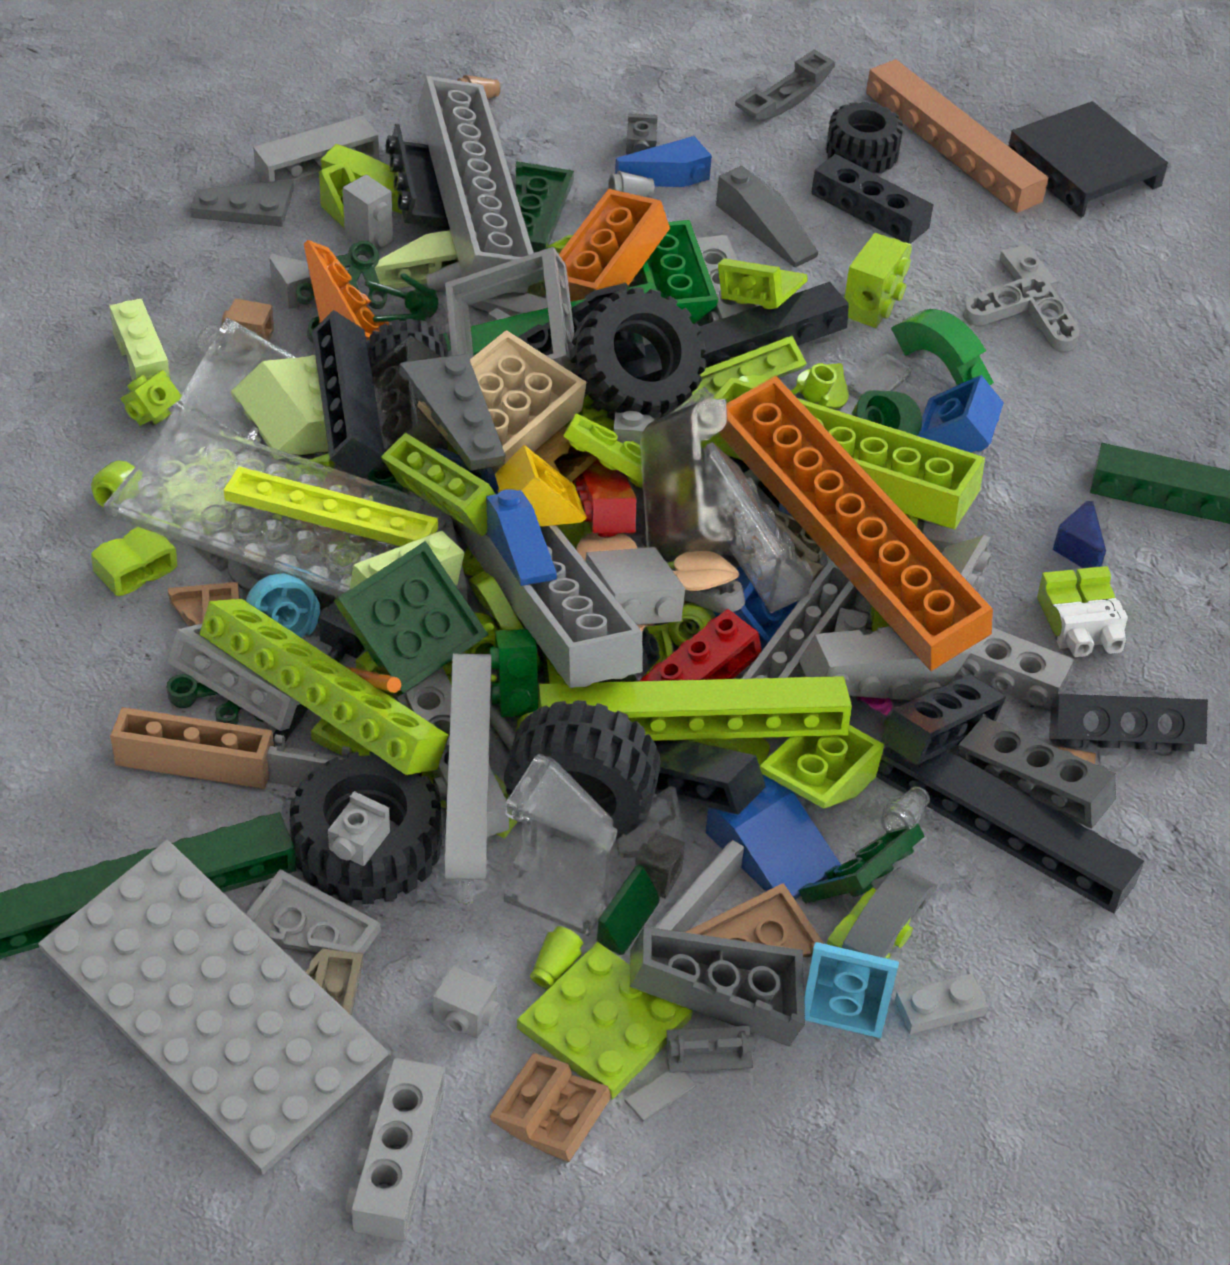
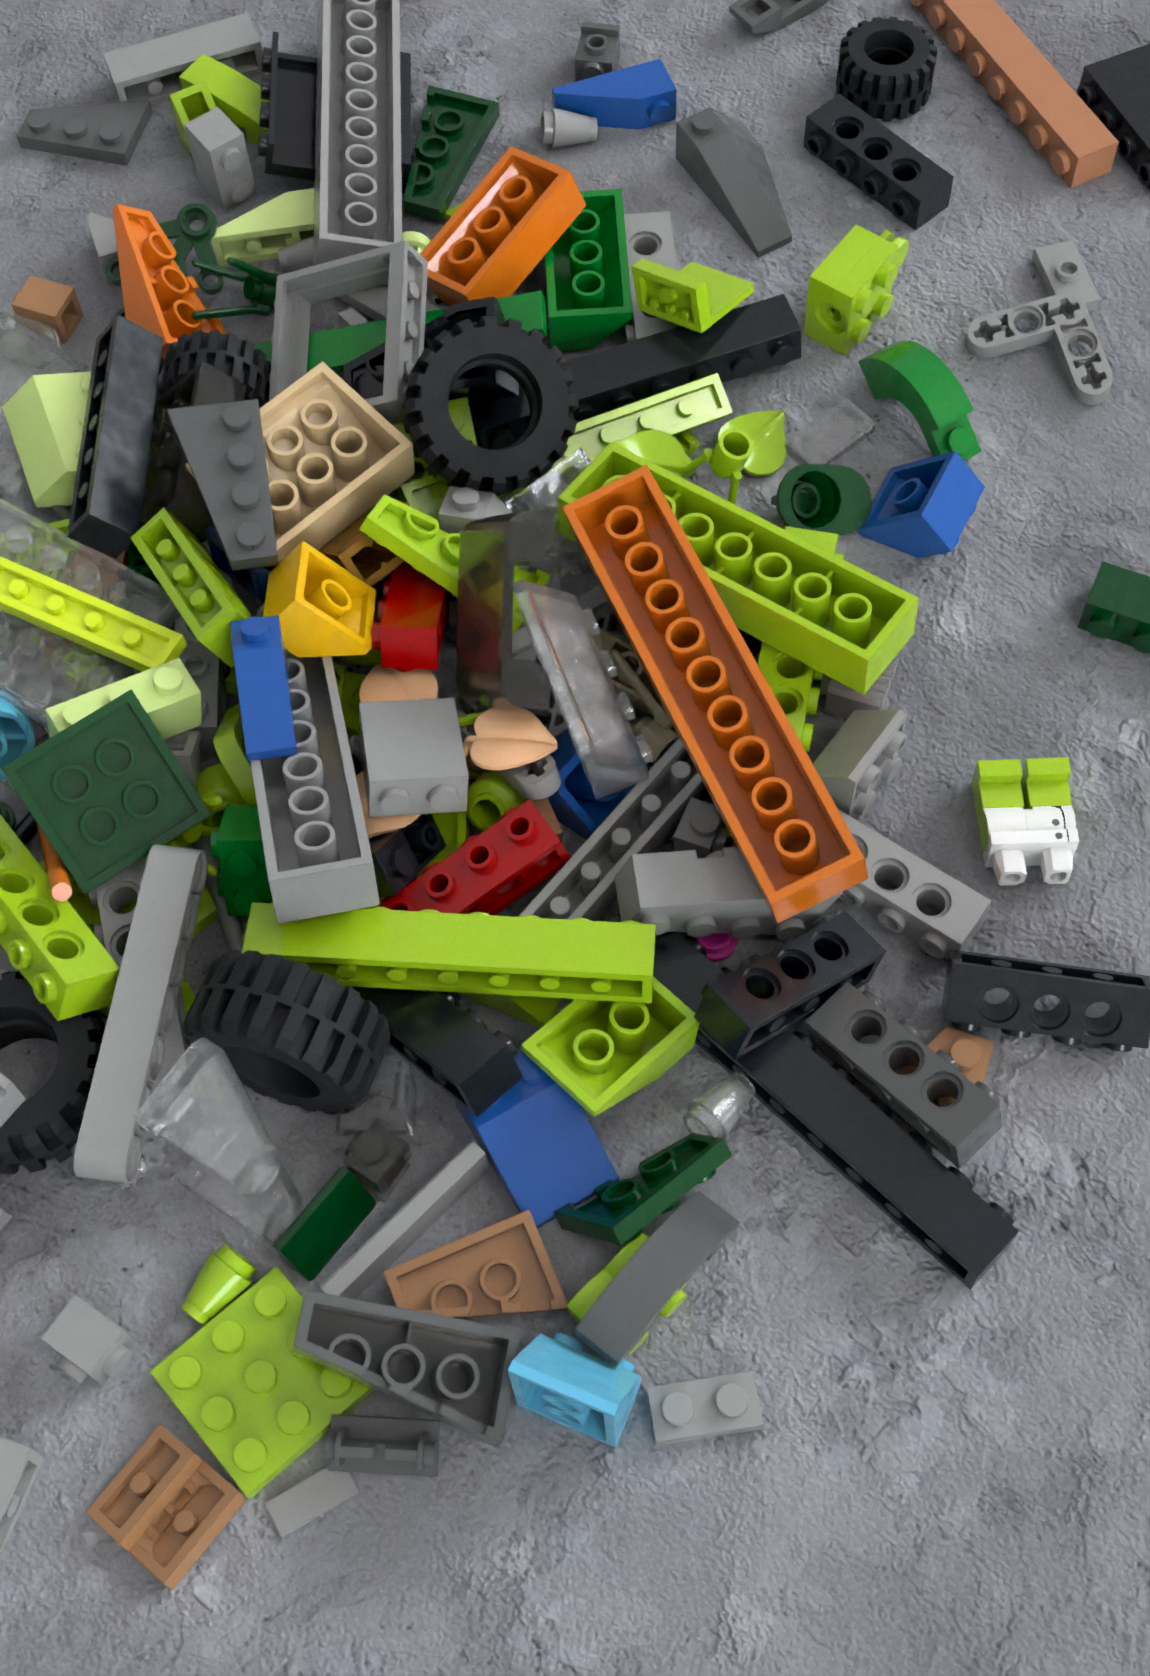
camera: 15 degrees right, 15 degrees up
(1081, 538) = (1045, 704): clear blue slope -> none

